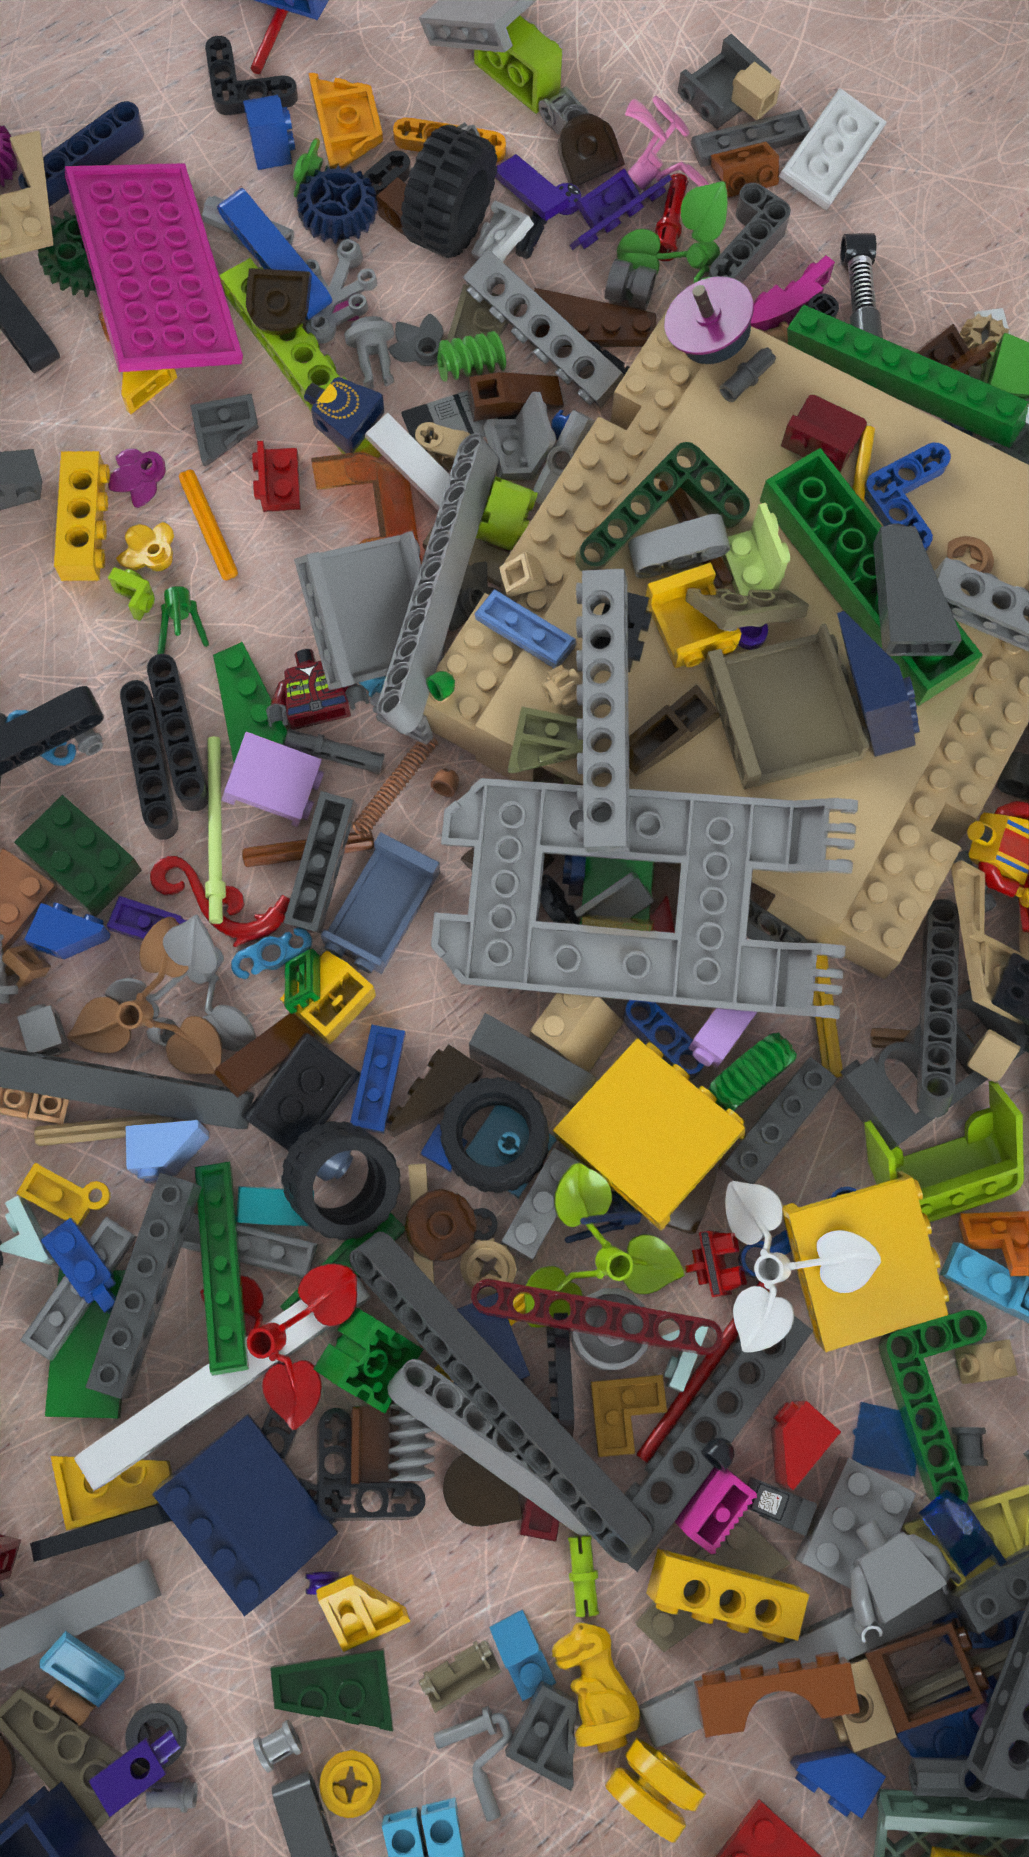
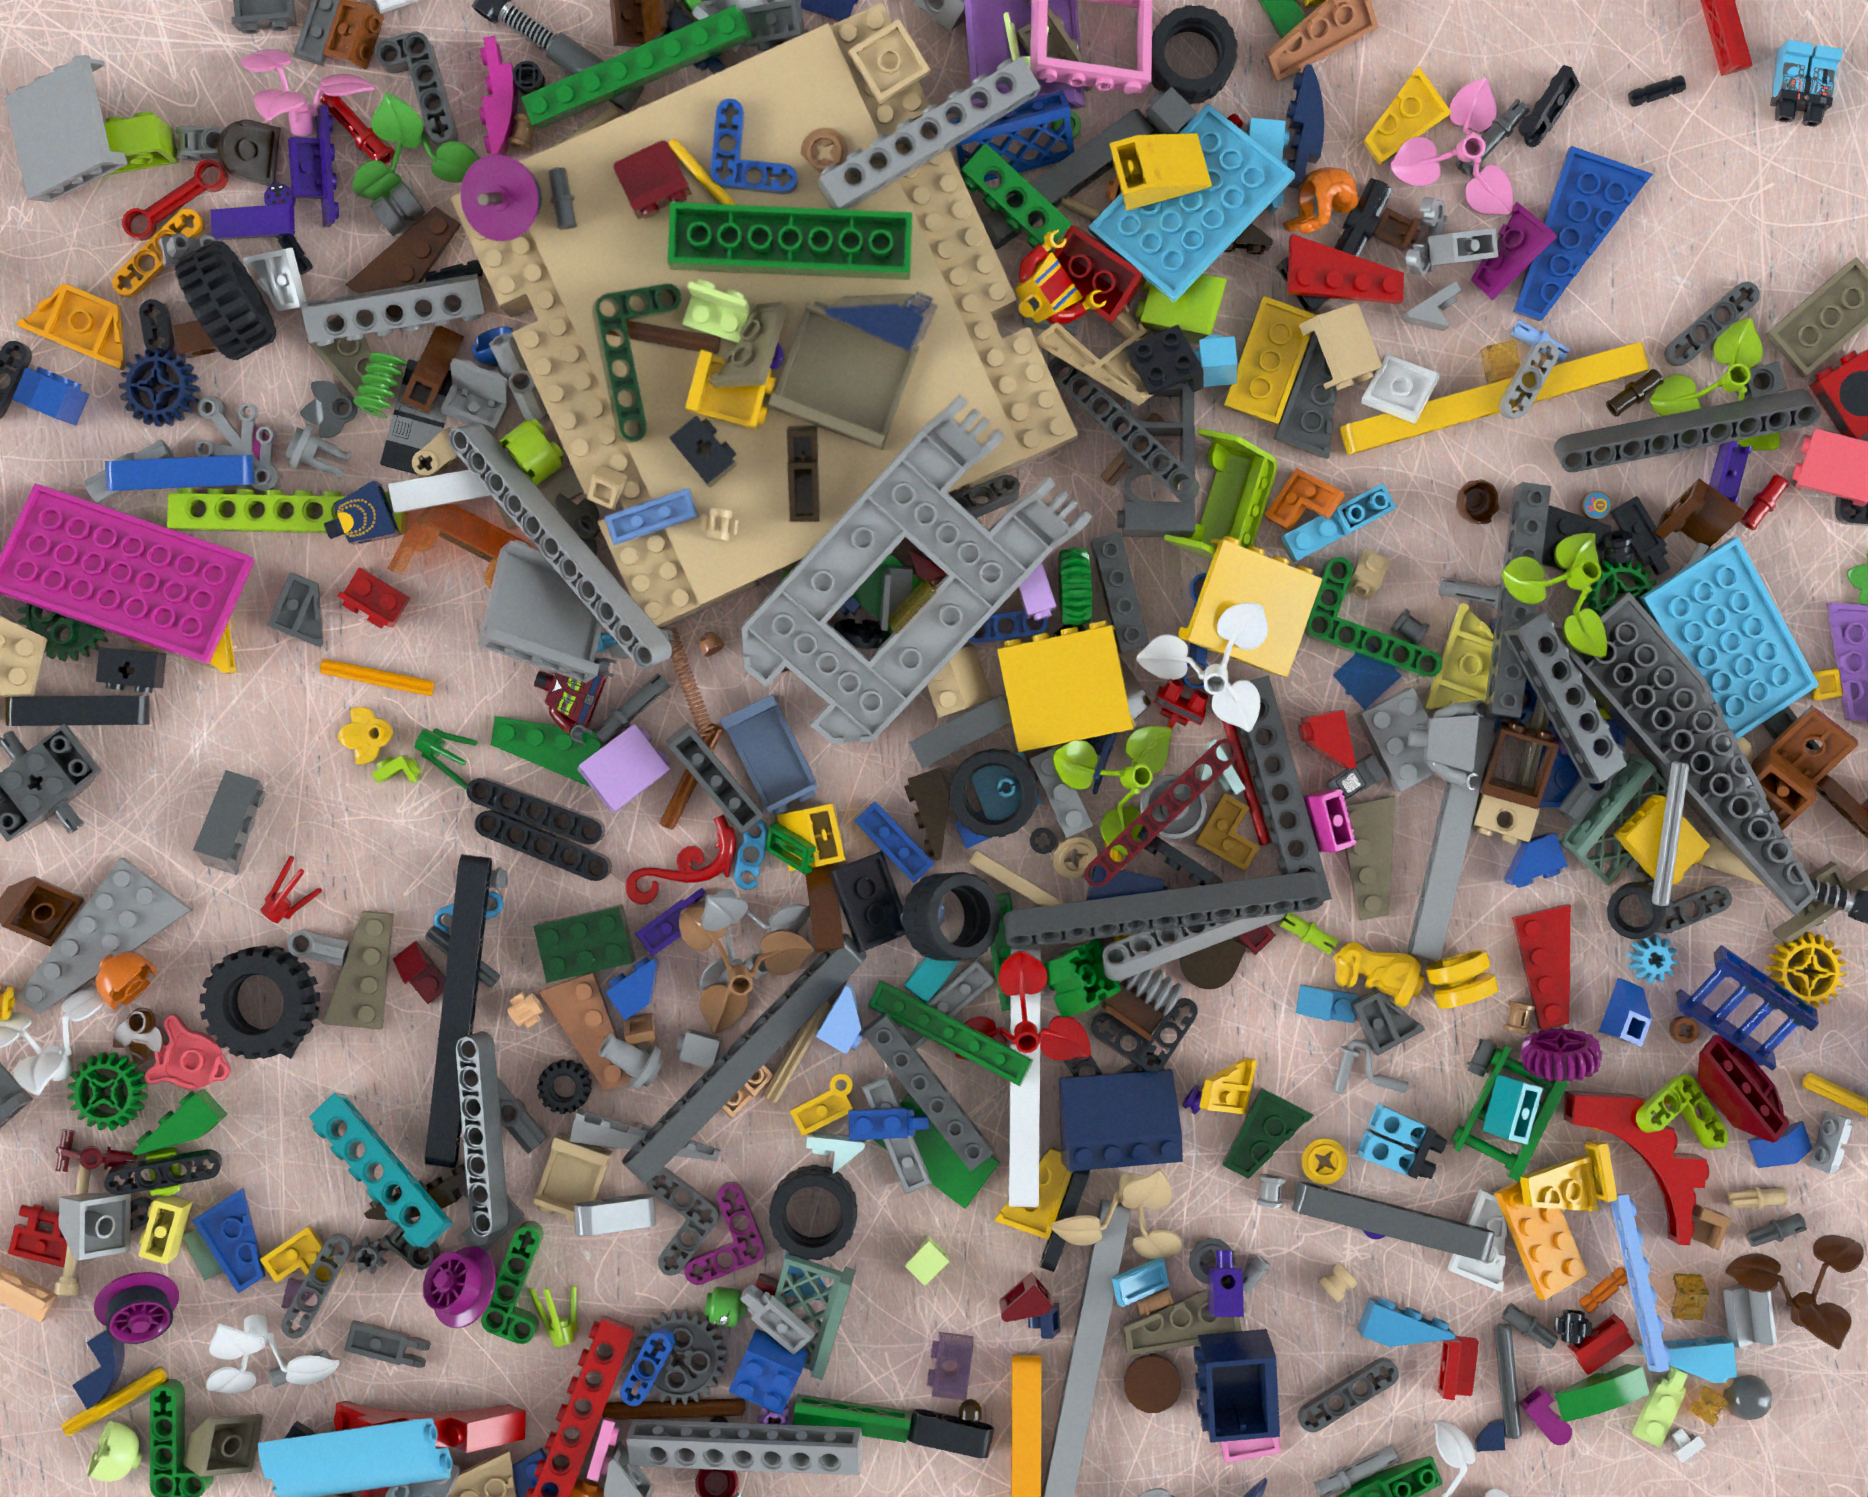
camera: 50 degrees left, 15 degrees up
(75, 327) = (113, 669): none -> black brick
(77, 471) = (264, 749): yellow brick -> none
(134, 477) = (295, 707): magenta plate -> none
(177, 1587) = (1151, 1191): none -> tan plant
(214, 888) = (677, 862): yellowish green bar -> none
(278, 299) = (227, 499): dark brown tile -> none
(306, 165) = (108, 387): bright green plate -> none
(440, 685) = (652, 607): green hinge -> none
(440, 1225) = (1026, 870): reddish brown tile -> none
(460, 1677) = (1312, 1051): dark tan hinge -> none
(505, 126) = (175, 200): none -> red piece
(543, 740) = (748, 564): olive wing -> none
(606, 587) = (841, 584): light grey brick -> none
(679, 546) = (669, 360): light grey beam -> none
(719, 1453) = (1300, 794): black hinge -> none
(727, 1700) = (1478, 833): dark orange arch -> none
(785, 1600) = (1348, 874): yellow brick -> none
(827, 1027) = (1099, 520): yellow axle -> none
(910, 599) = (837, 235): dark grey slope -> none
(960, 1533) = (1455, 679): clear blue panel -> none
(992, 1055) = (1183, 419): tan slope -> none

